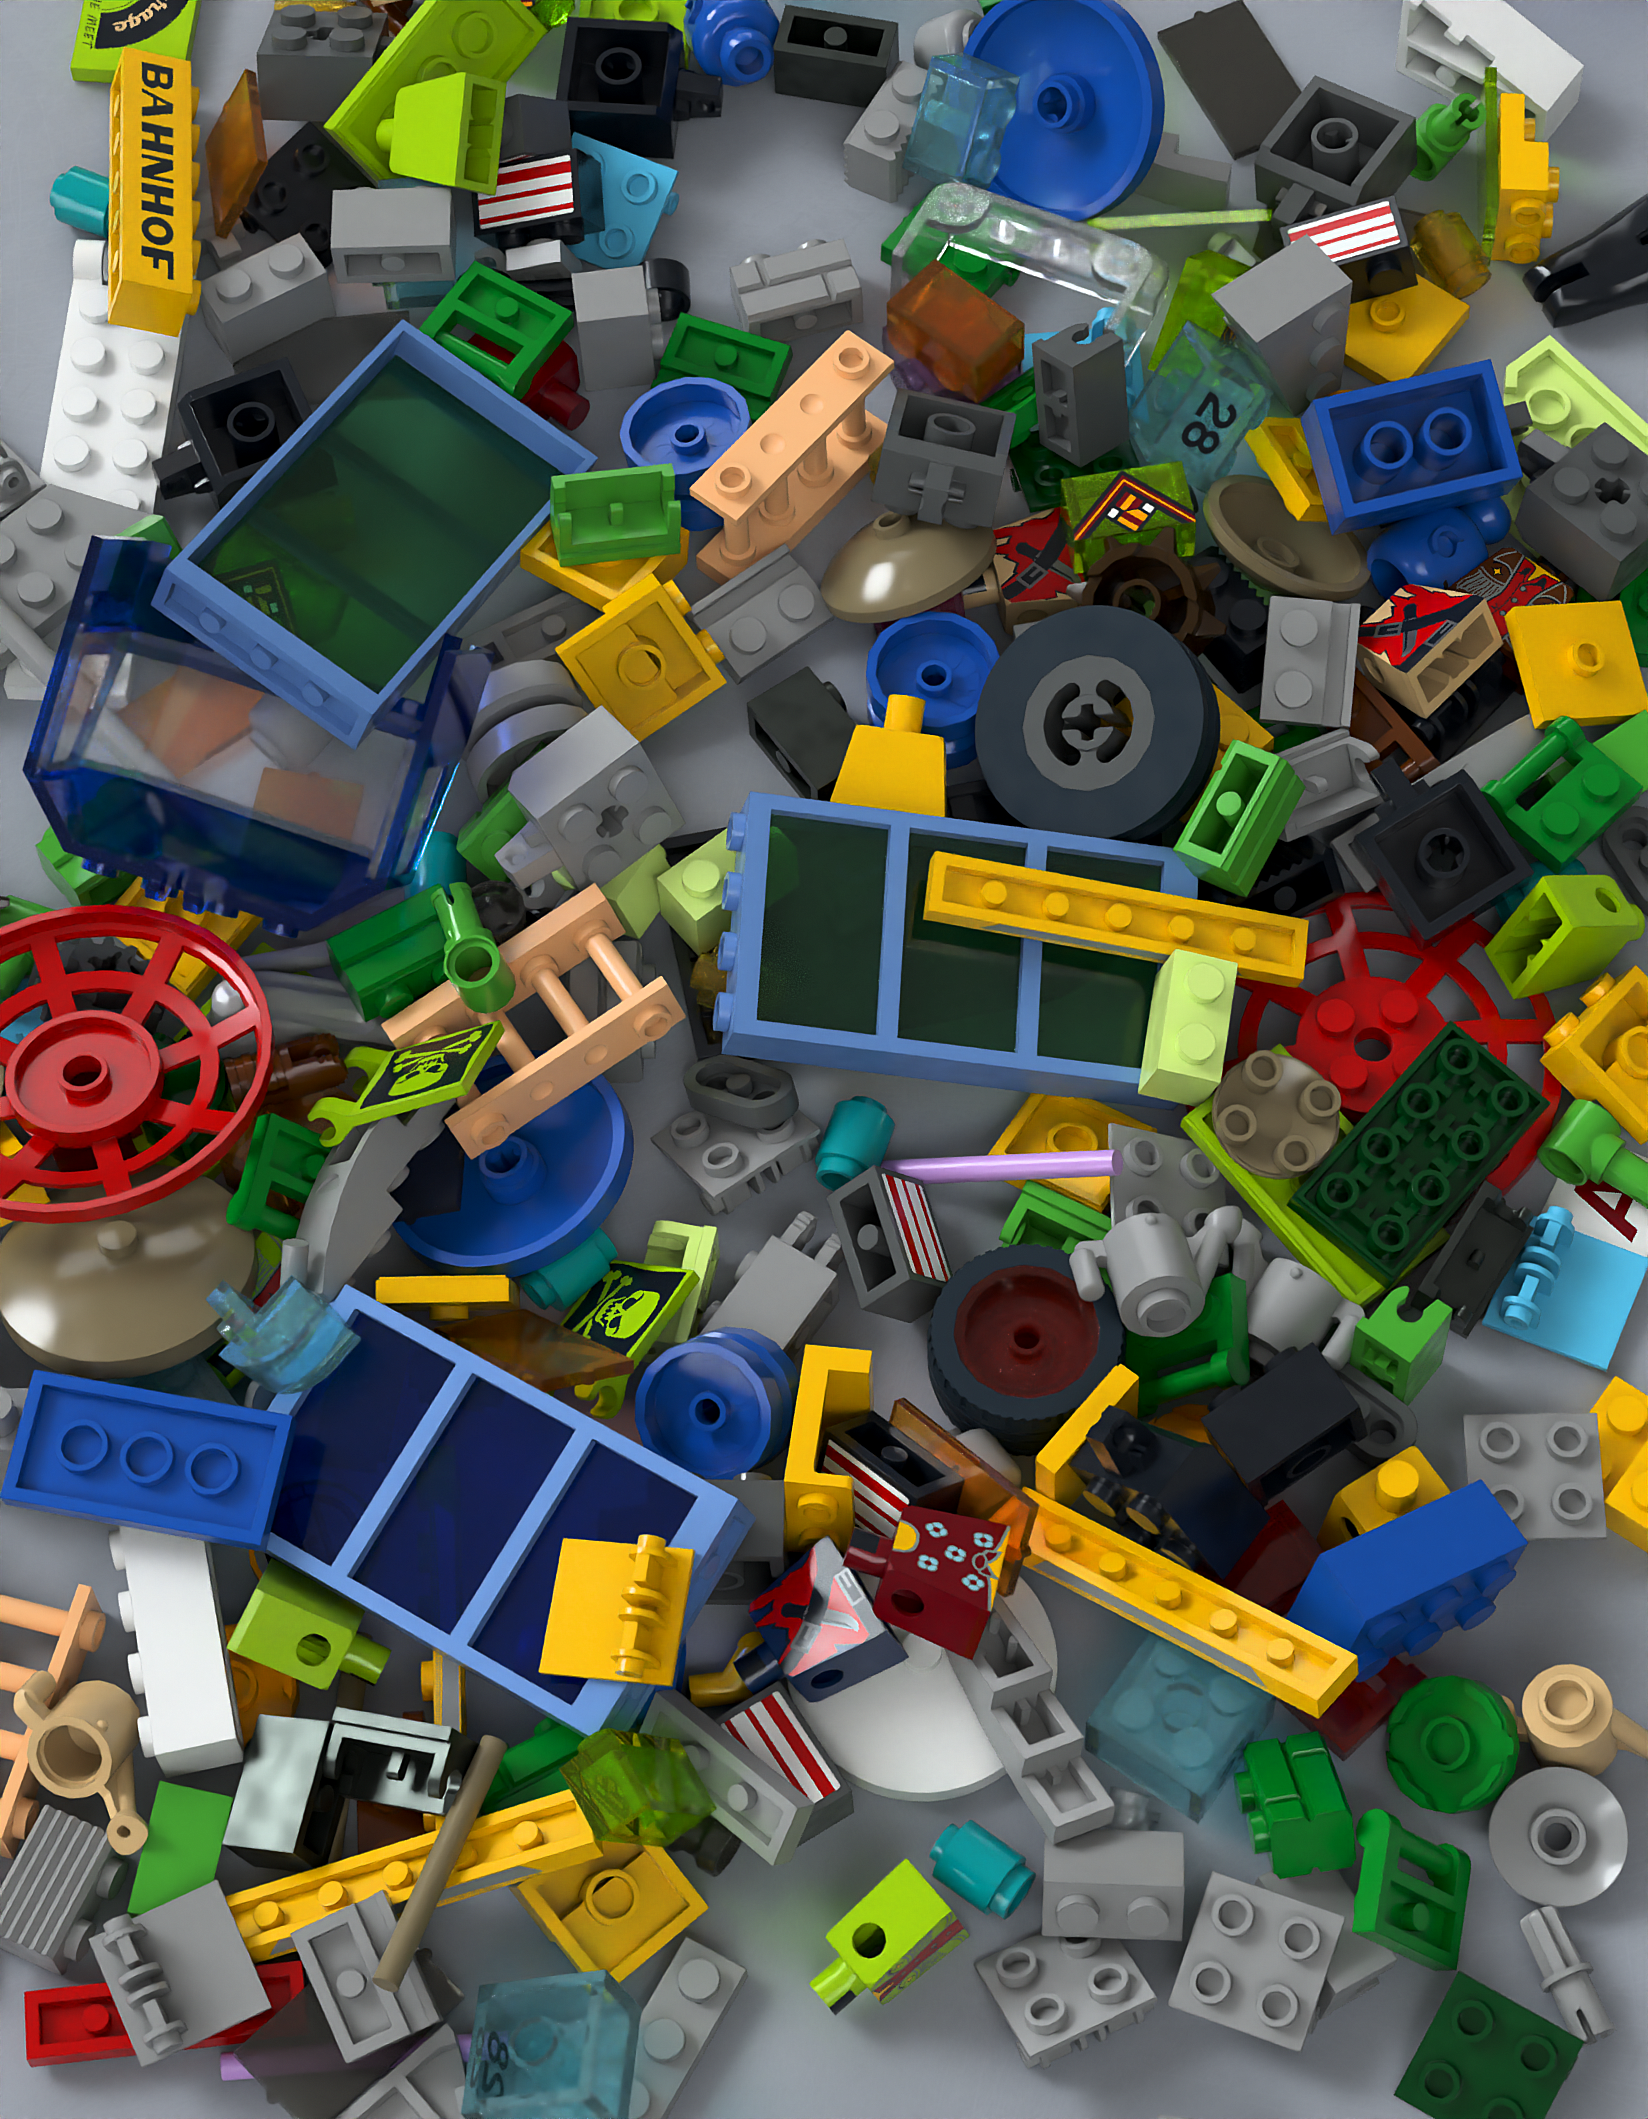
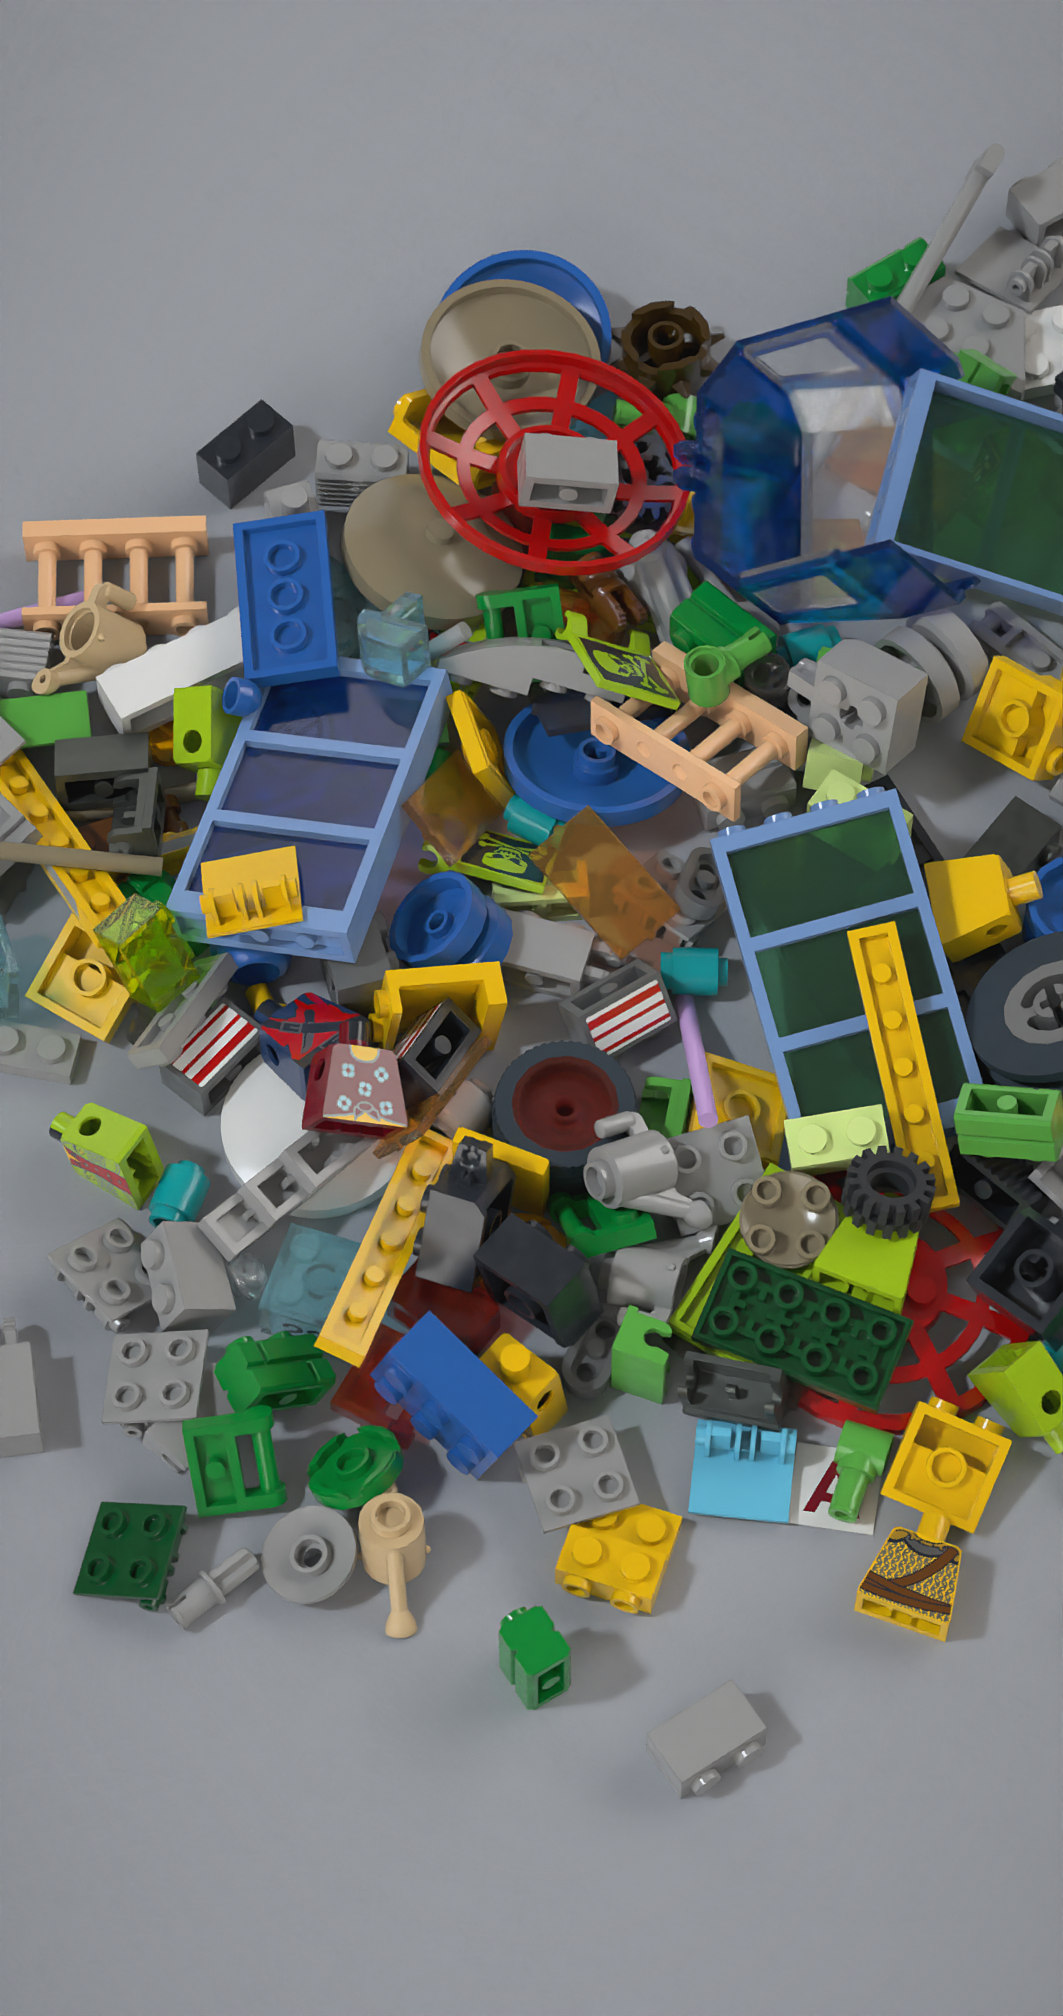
camera: 70 degrees right, 0 degrees up
(124, 1037) = (567, 473): none -> light grey brick
(283, 1559) = (241, 697): none -> blue hinge
(713, 1197) = (604, 882): none -> clear orange piece
(1303, 1006) = (885, 1212): none -> black tyre
(1355, 1034) = (868, 1264): none -> lime torso

